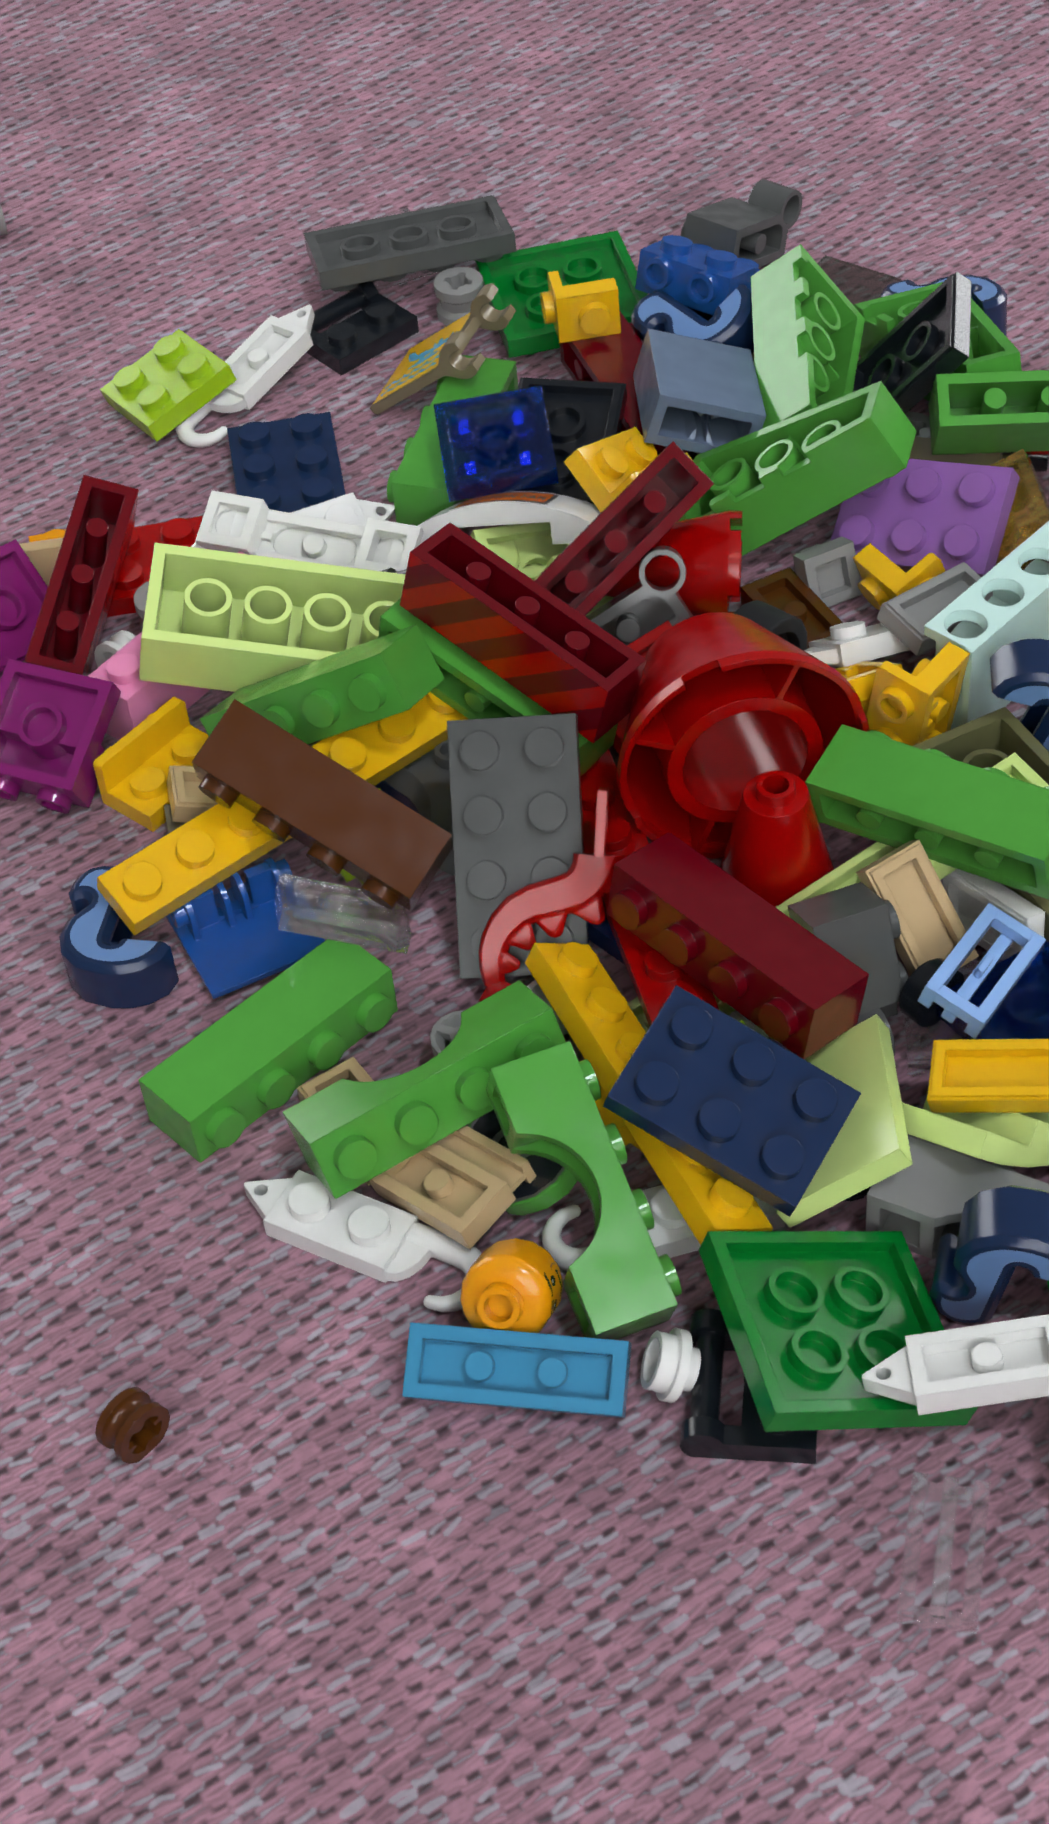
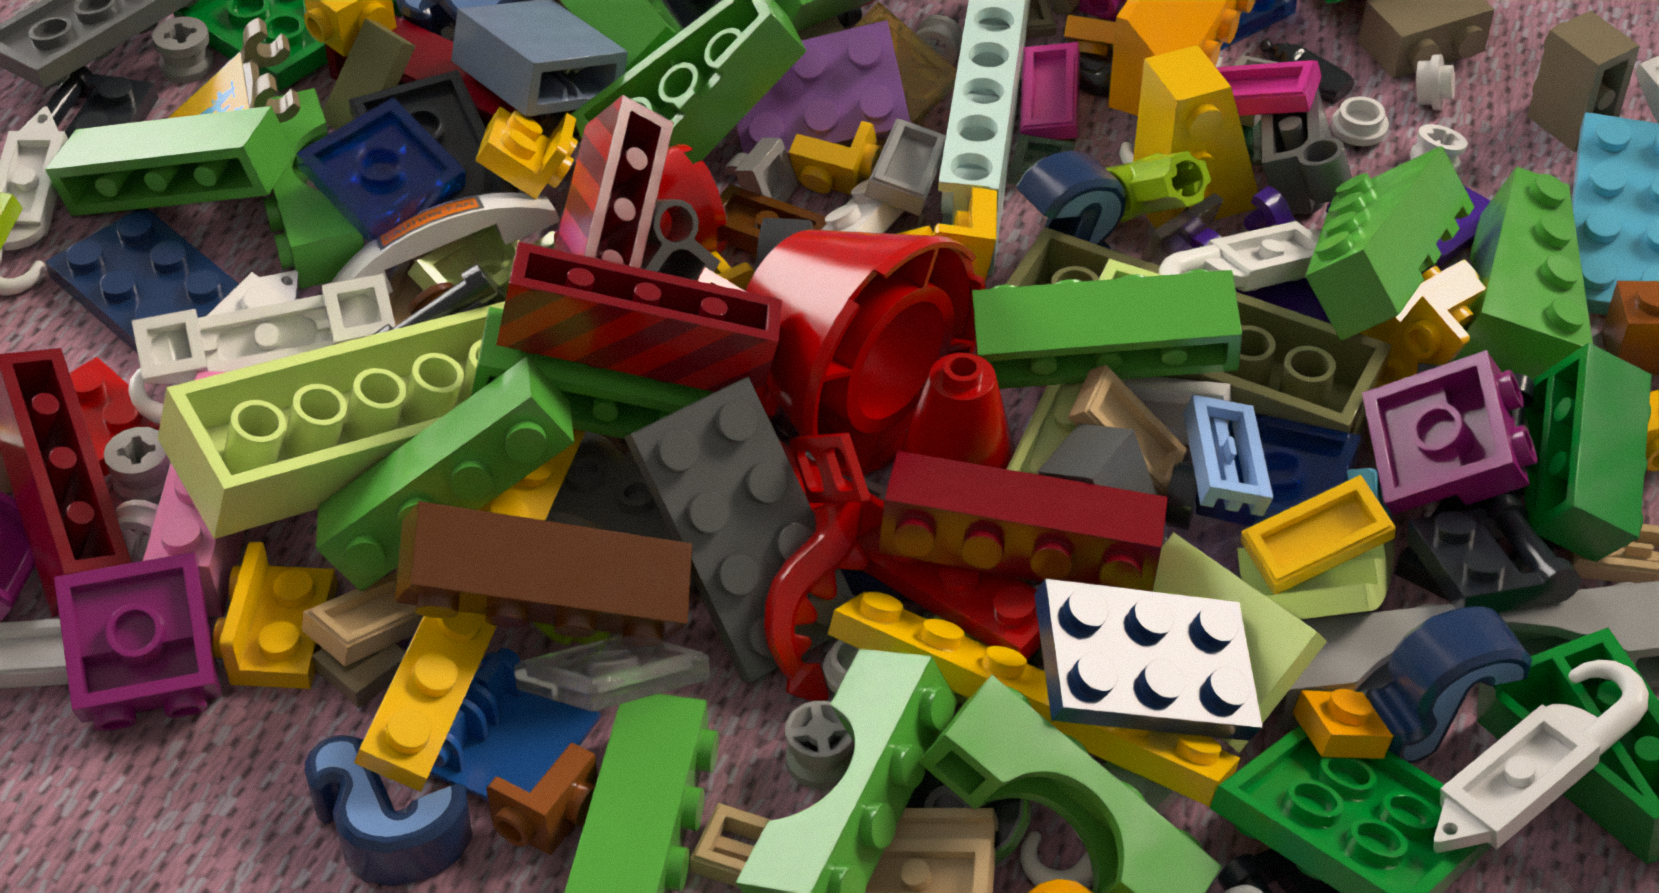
camera: 40 degrees left, 0 degrees up
(224, 988) = (551, 807): none -> dark orange bracket
(359, 380) = (171, 161): none -> bright green brick
(575, 353) = (372, 66): none -> olive tile
(895, 1248) = (1342, 724): none -> light orange plate

